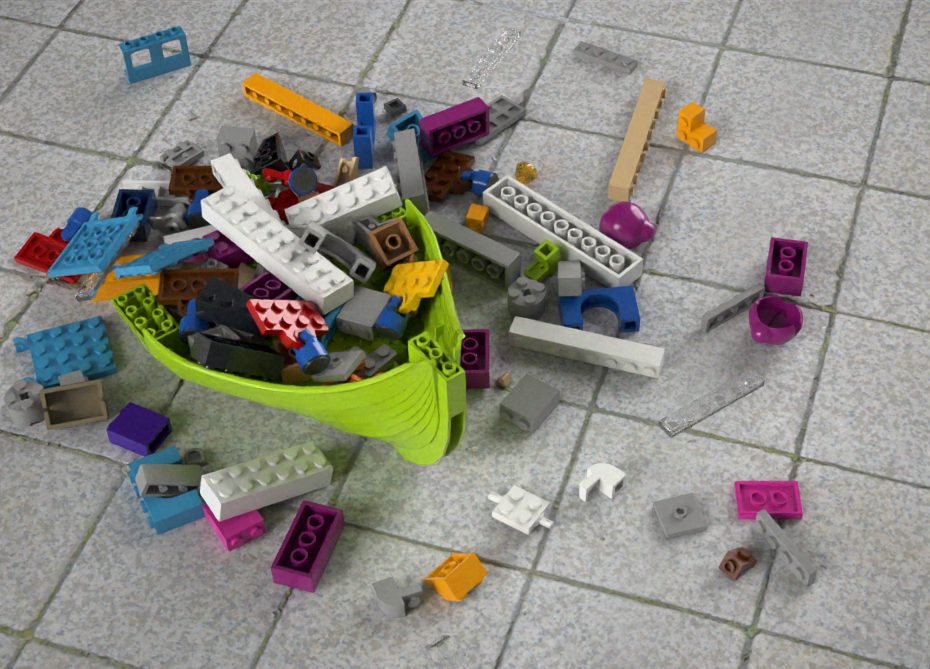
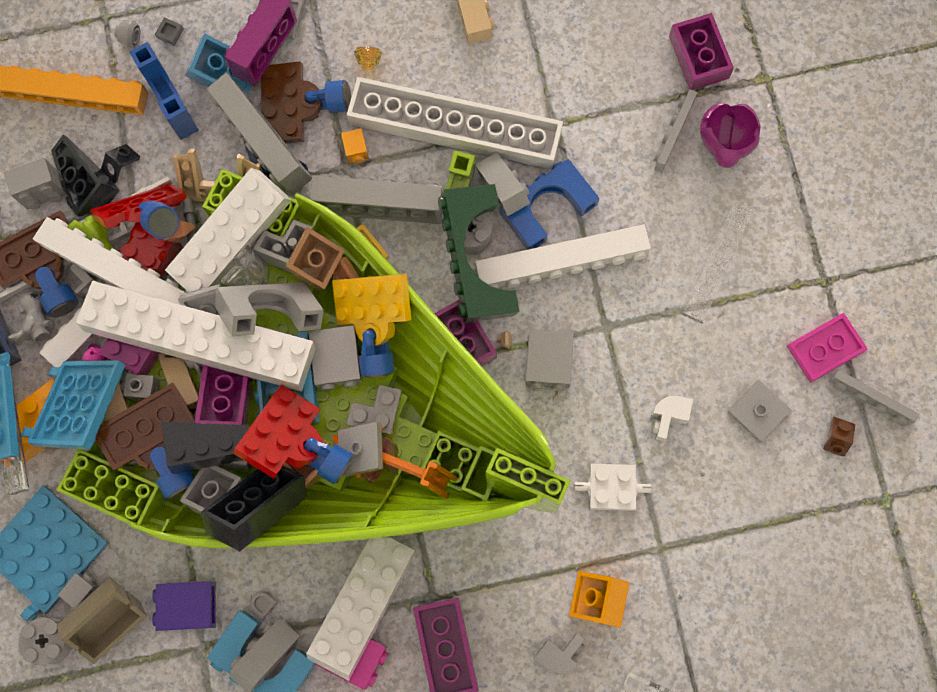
camera: 25 degrees left, 30 degrees up
(498, 330) = (476, 298): none -> dark green arch
(626, 224) = (514, 78): magenta piece -> none

